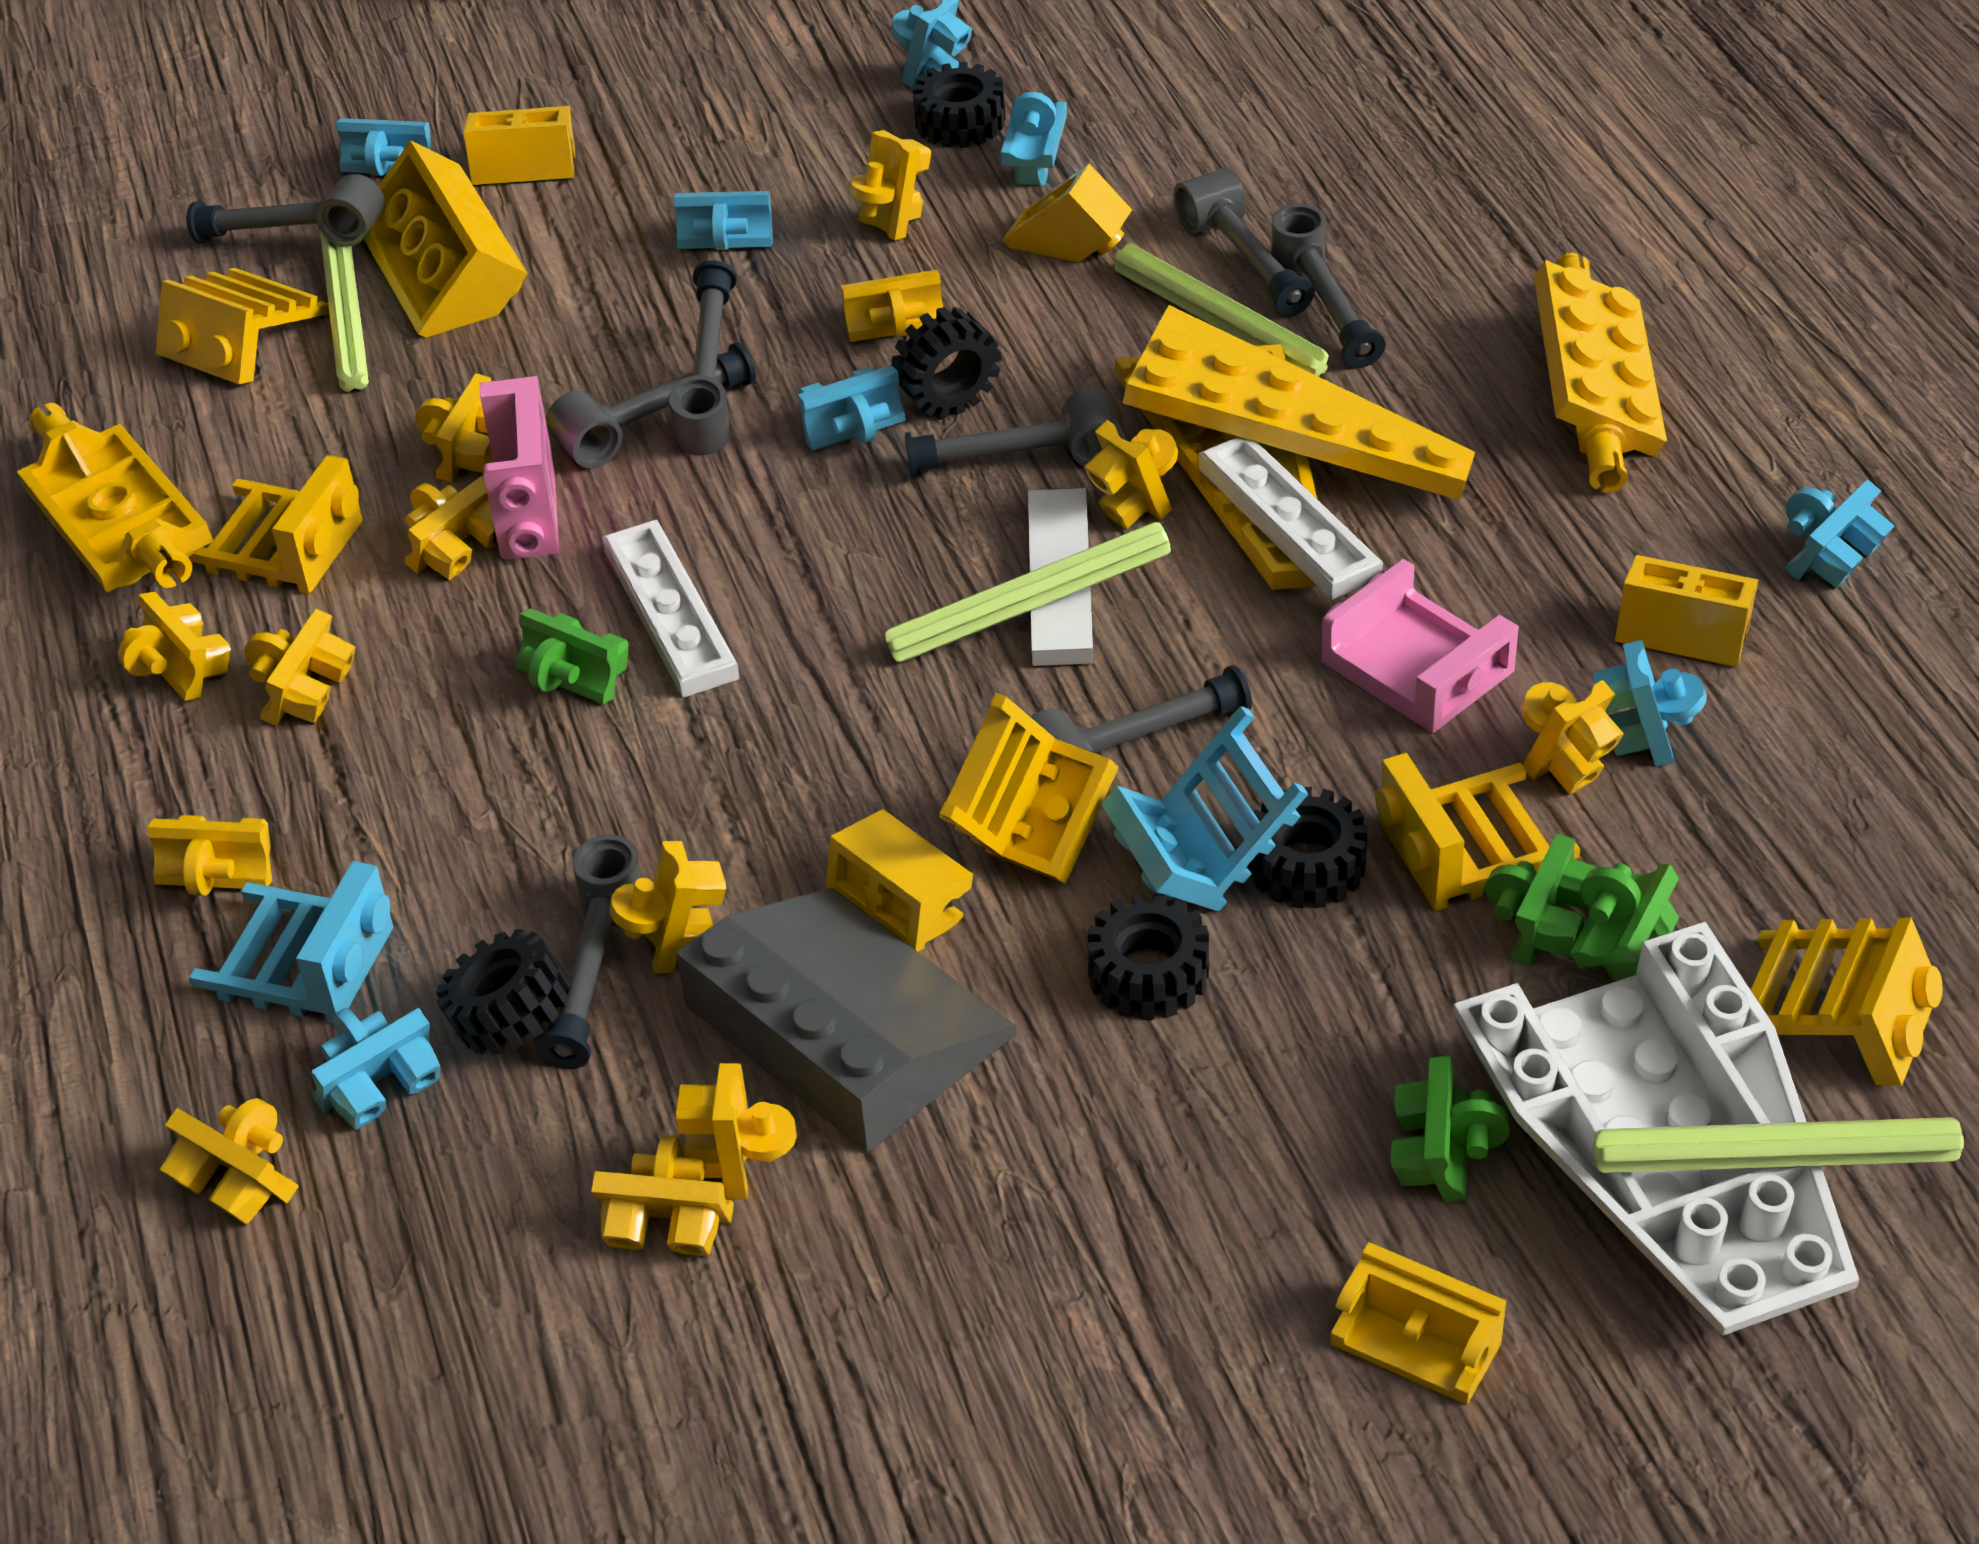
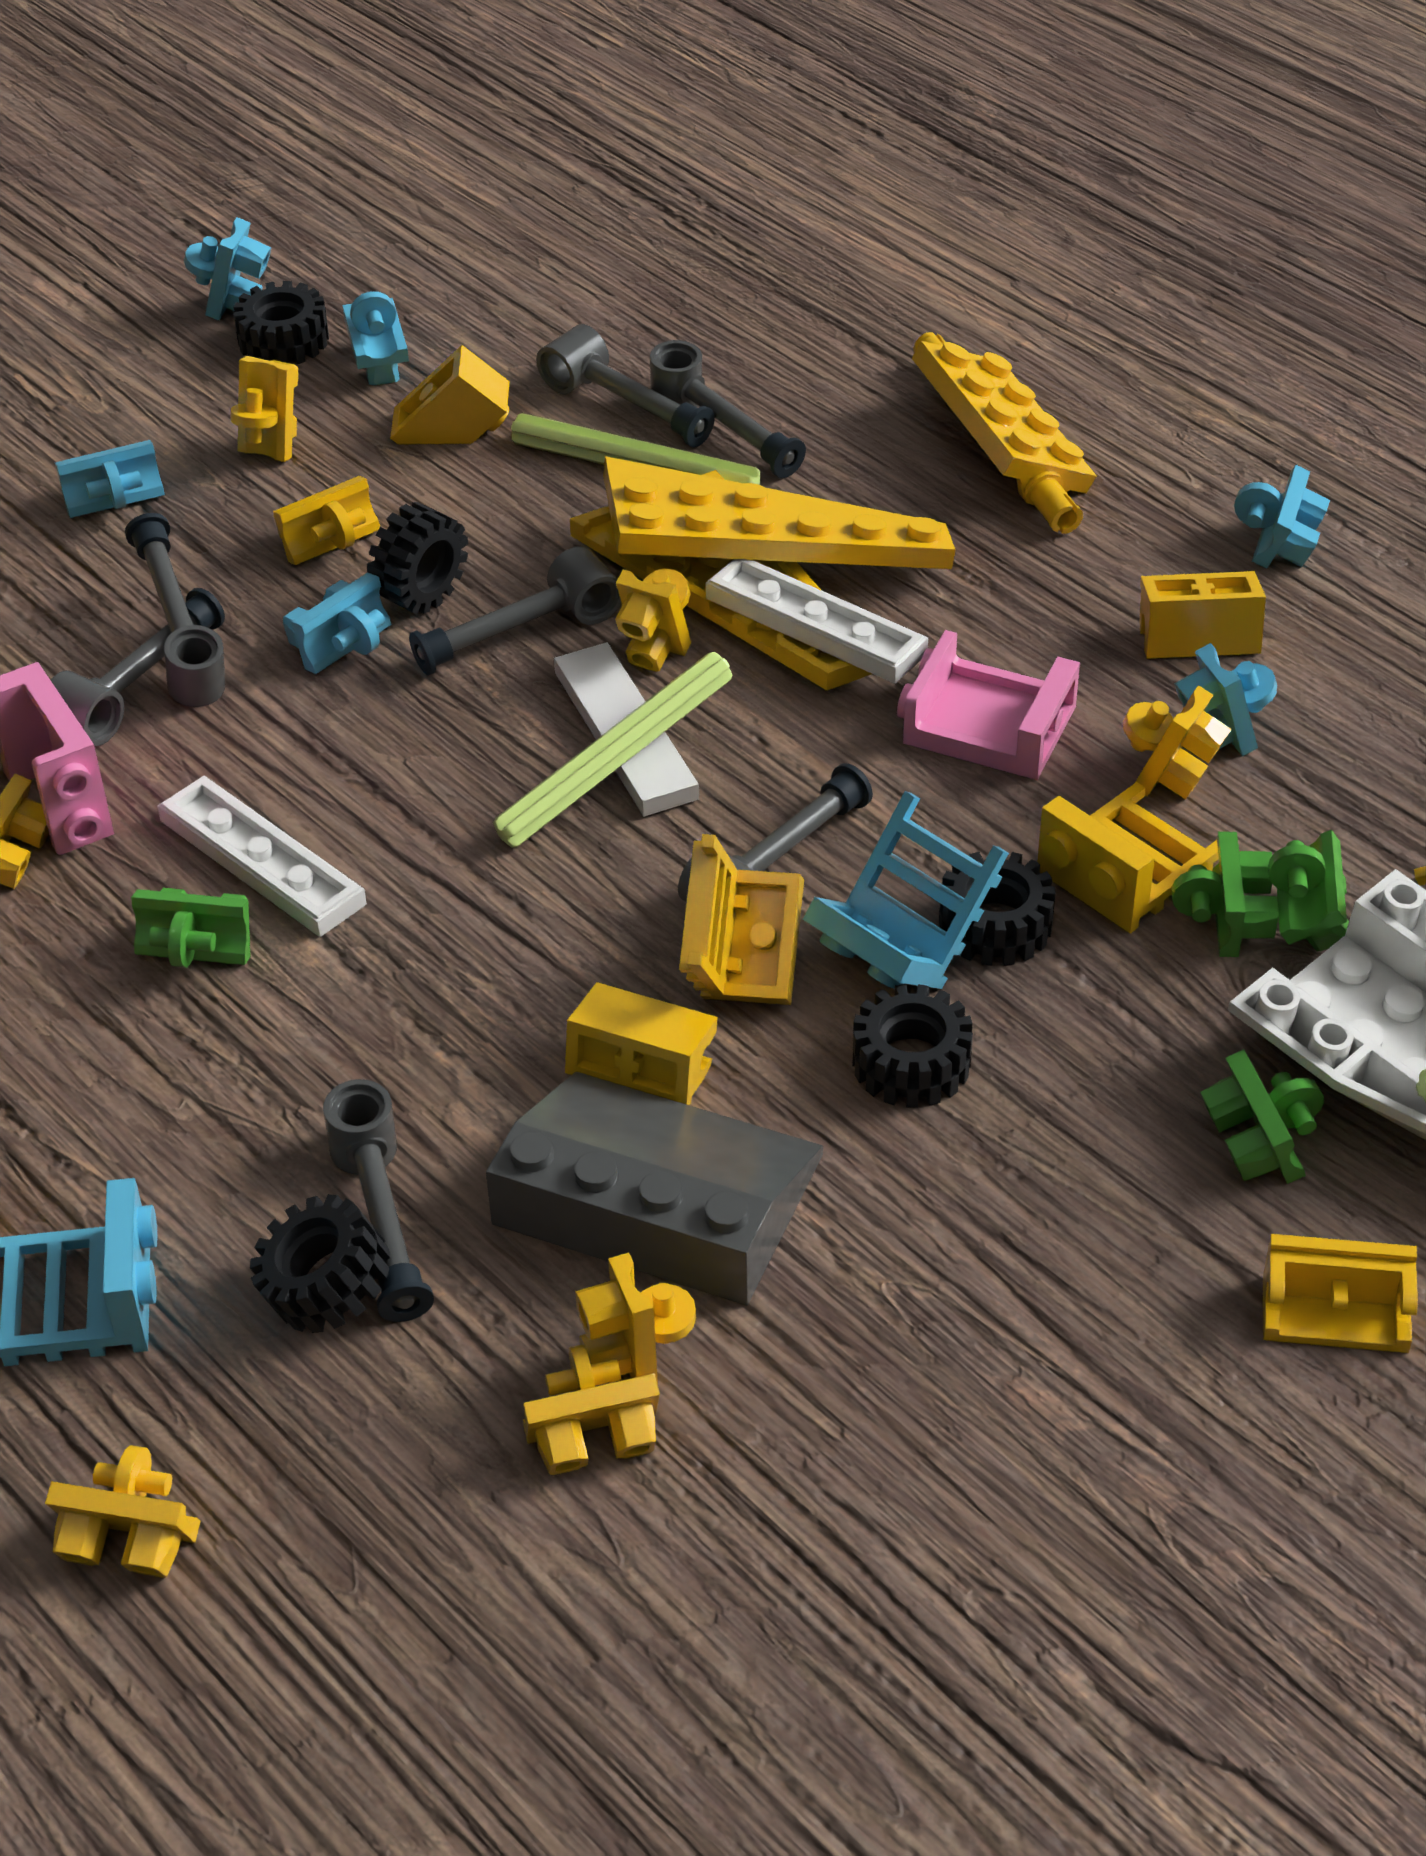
camera: 25 degrees left, 0 degrees up
(367, 1053) = (205, 1401): medium azure hips -> none
(663, 906) = (445, 1132): yellow hips -> none

